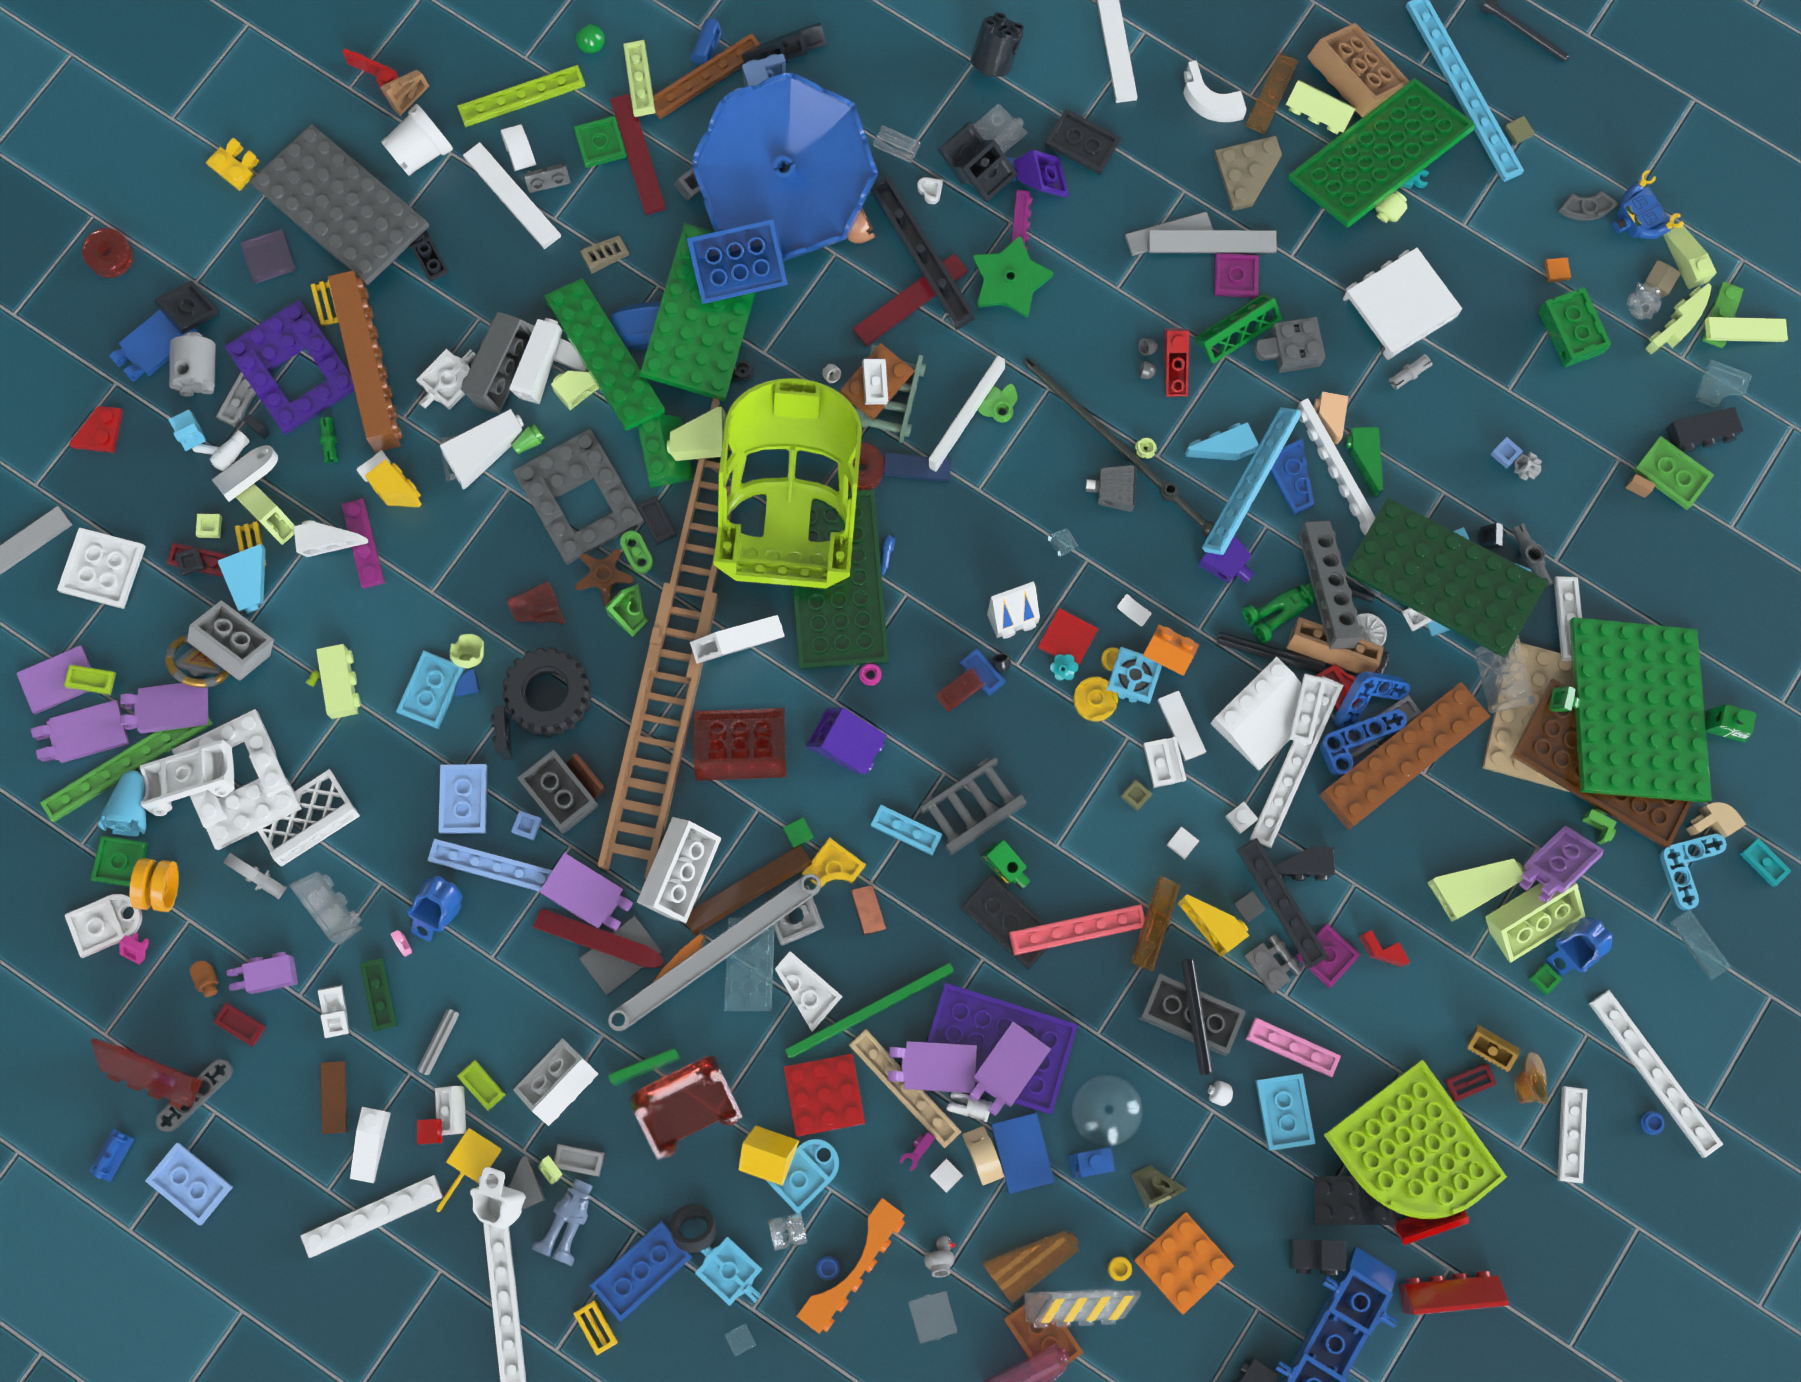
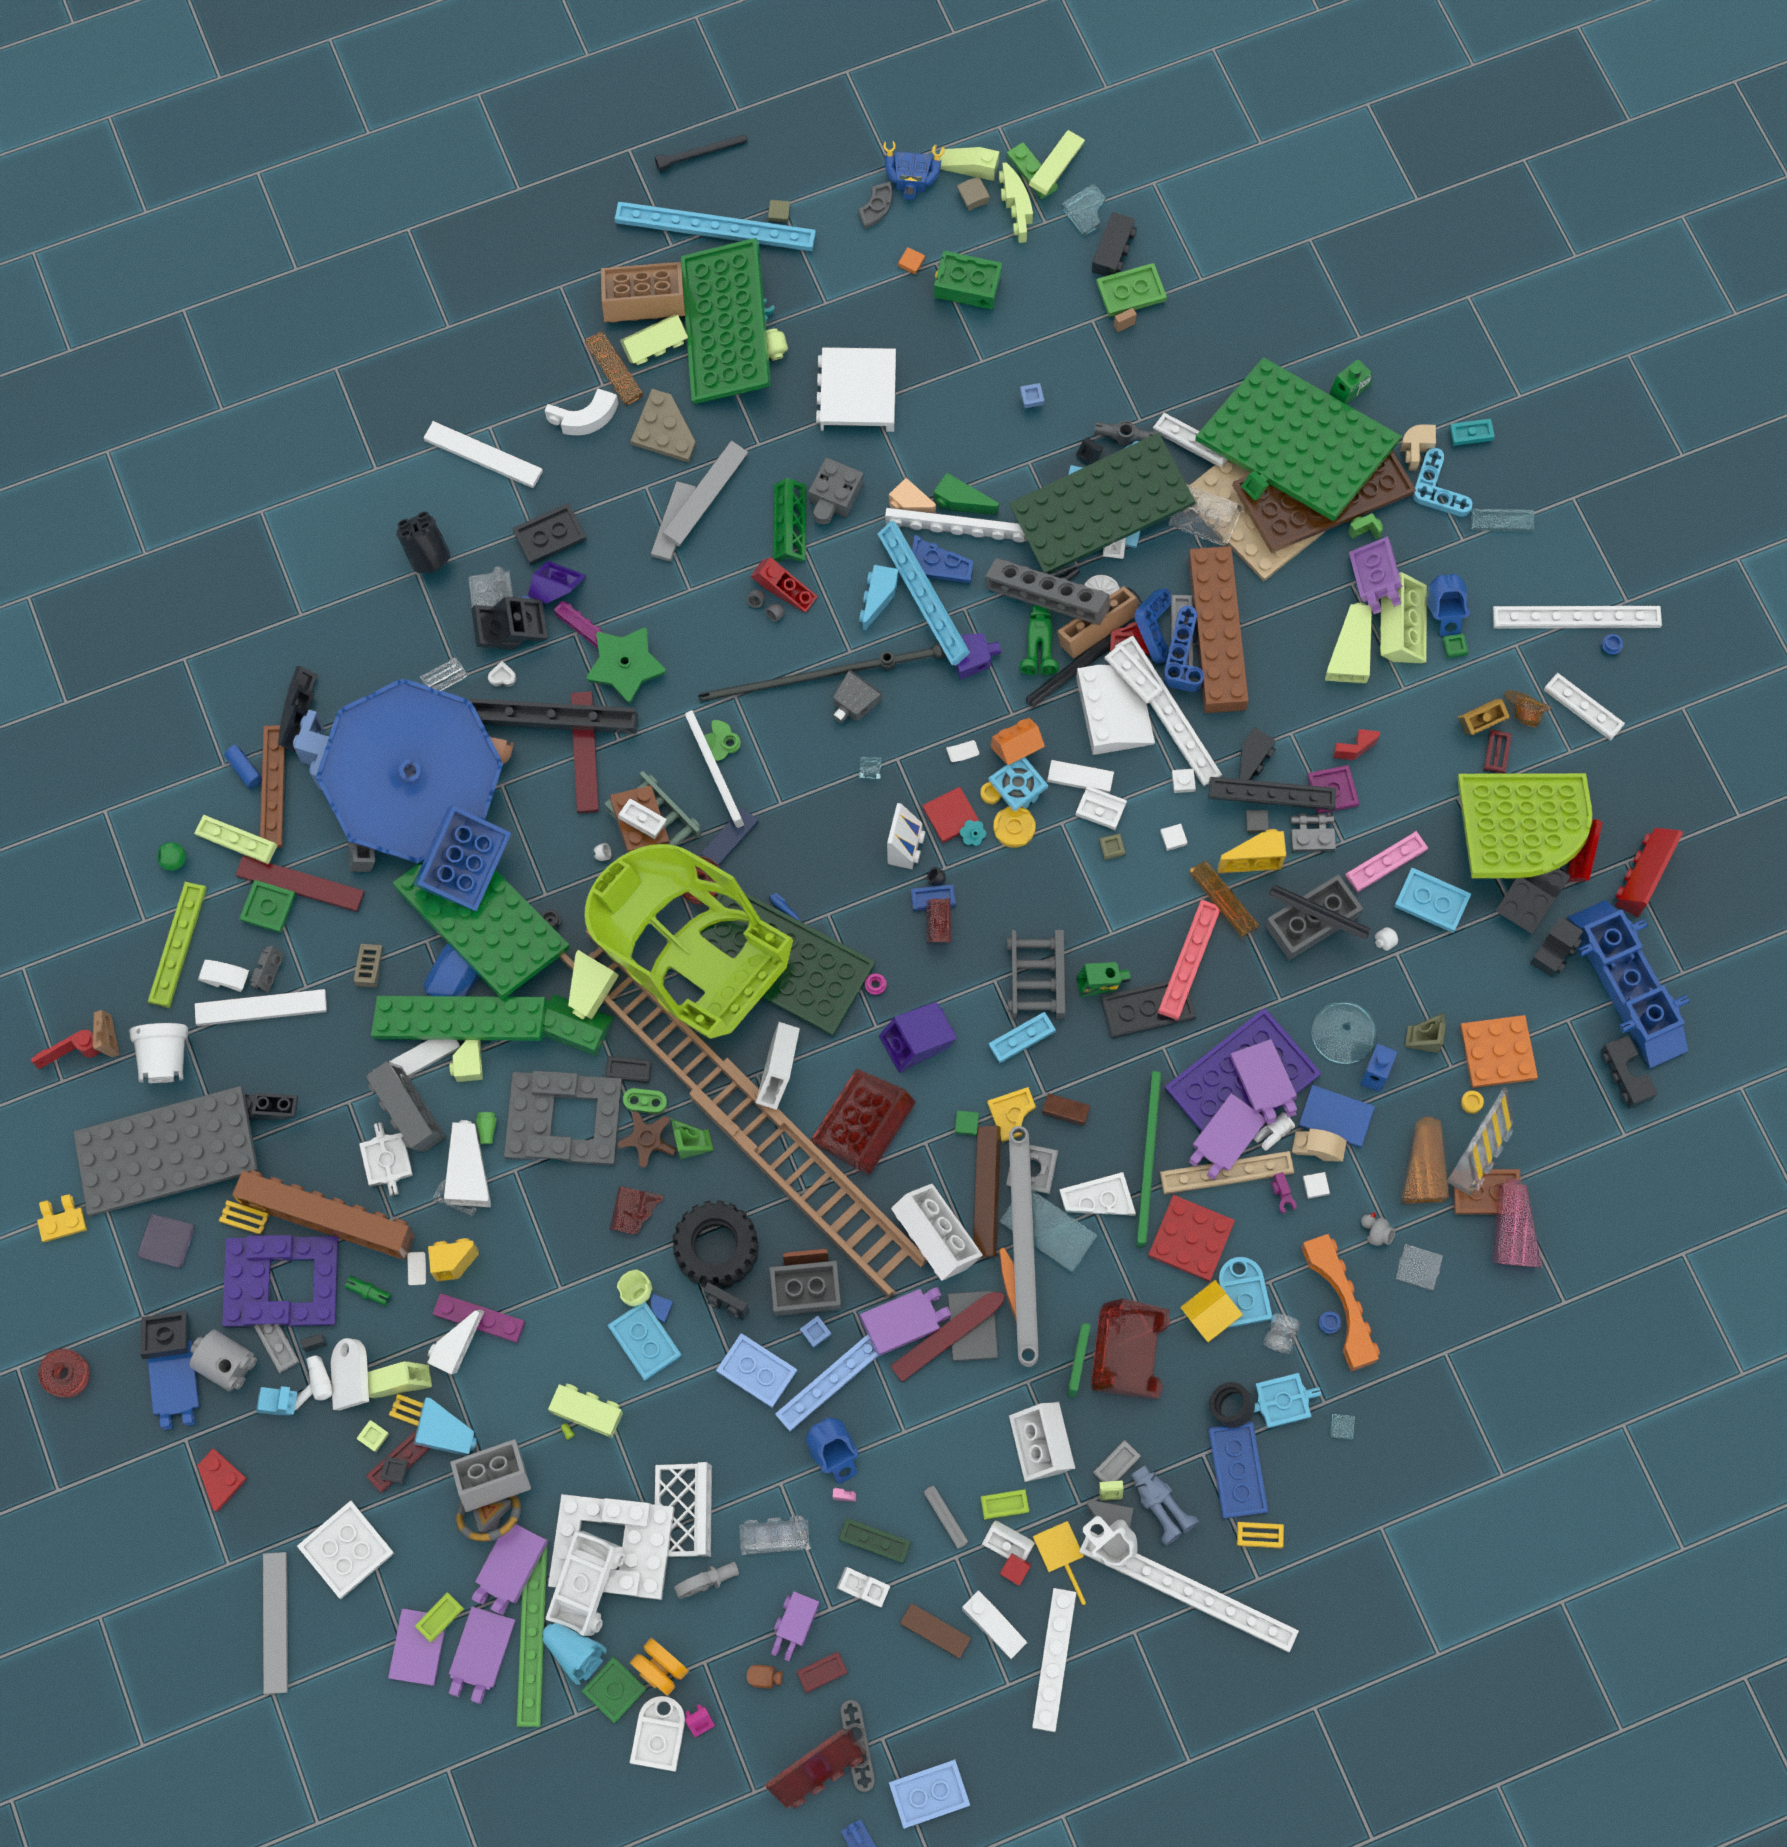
camera: 50 degrees left, 5 degrees down
(537, 361) = (426, 1074): white slope -> none
(1145, 442) = (838, 649): yellowish green plate -> none
(1236, 275) = (745, 494): magenta tile -> none
(1410, 372) = (917, 421): light grey pin -> none
(1527, 466) = (1053, 388): light grey gear -> none
(1644, 301) = (983, 217): clear brick -> none

